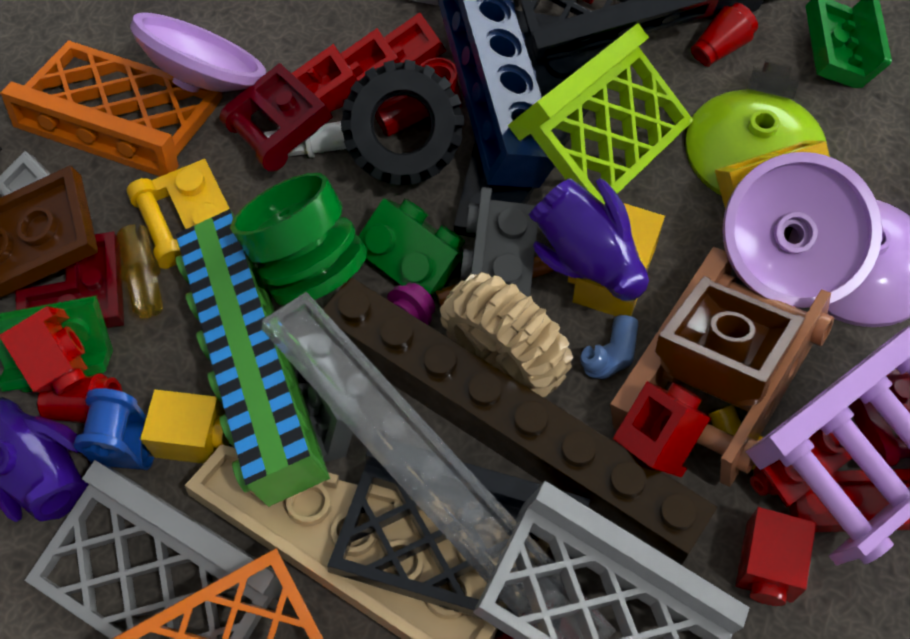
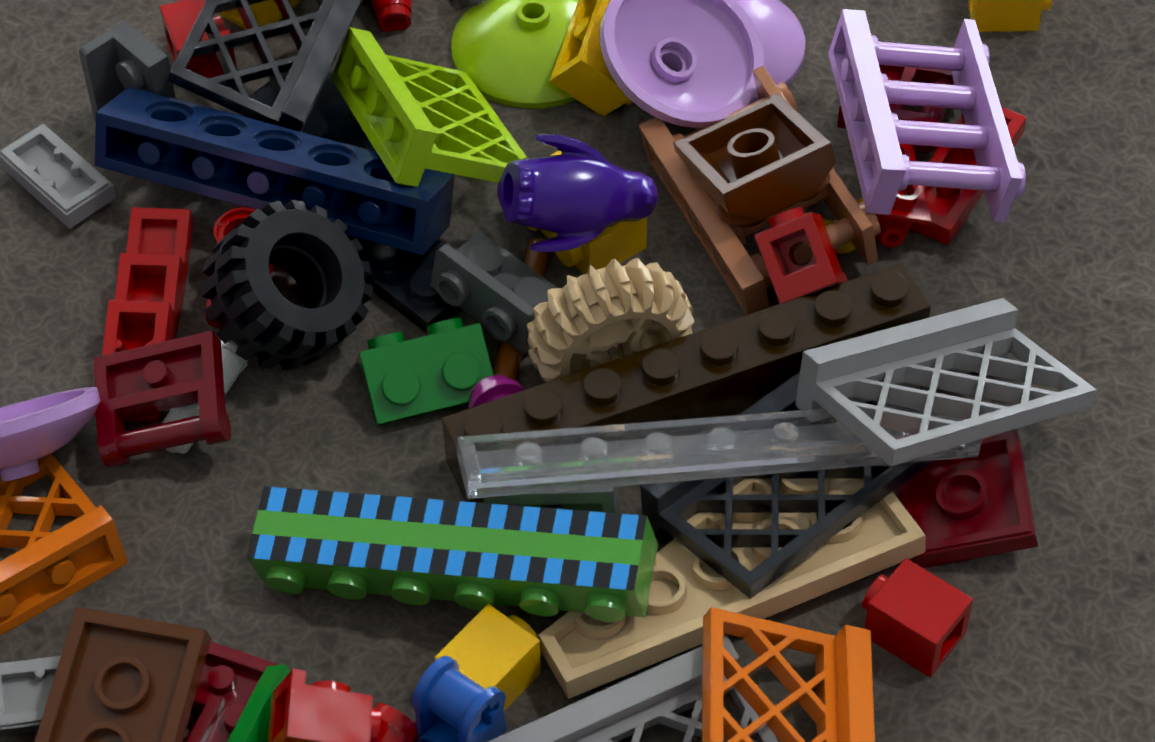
camera: 60 degrees left, 10 degrees down
(140, 271) = (251, 632): clear yellow axle -> none
(194, 197) = (192, 544): yellow plate -> none
(299, 238) = (360, 431): green wheel -> none
(615, 355) = (672, 260): medium blue arm -> none
(775, 557) = (964, 262): red brick -> none

